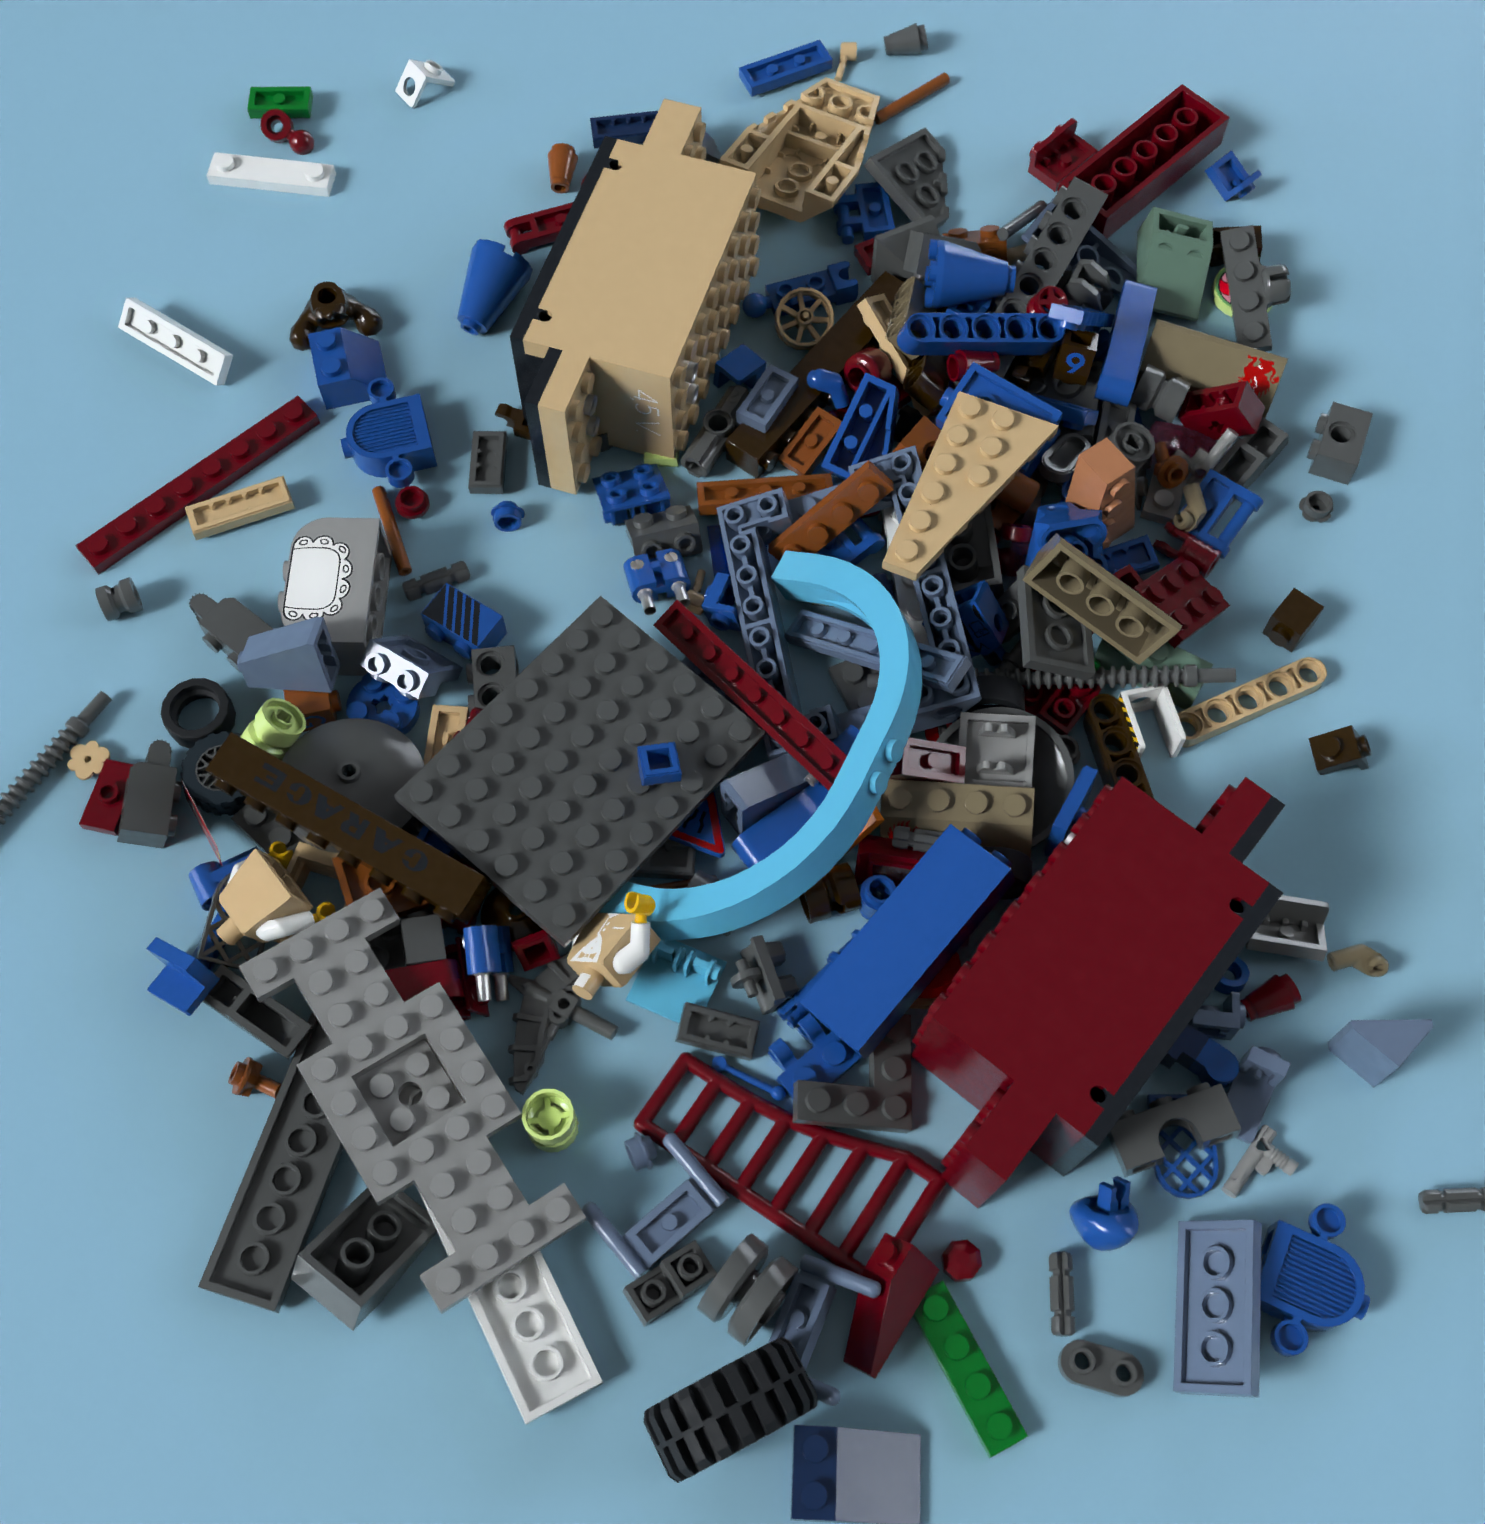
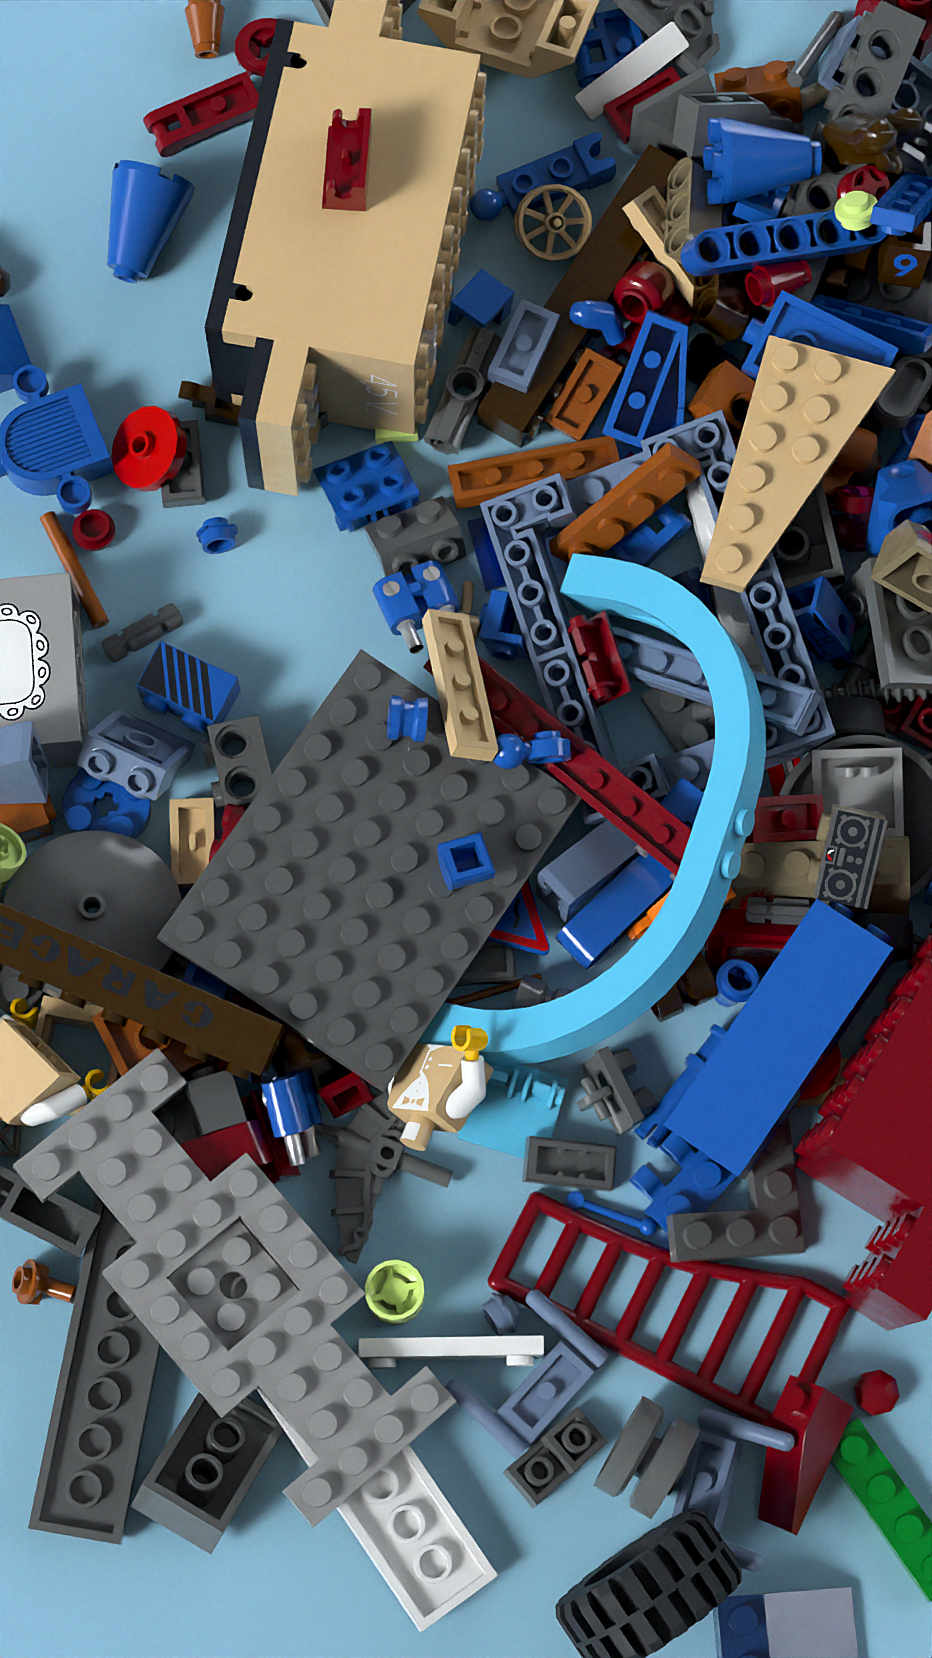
camera: 10 degrees left, 10 degrees up
(464, 446) = (148, 448): none -> red plate
(535, 1170) = (517, 1350): none -> white plate
(627, 647) = (407, 718): none -> blue wheel
(641, 231) = (348, 162): none -> dark red hinge
(676, 632) = (459, 685): none -> tan plate
(738, 687) = (544, 749): none -> blue plate
(796, 630) = (600, 658): none -> dark red hinge
(879, 220) = (632, 69): none -> white sticker
(980, 792) = (847, 856): none -> brick
(1037, 311) = (855, 210): none -> yellowish green plate
(1058, 267) = (872, 139): none -> dark brown head

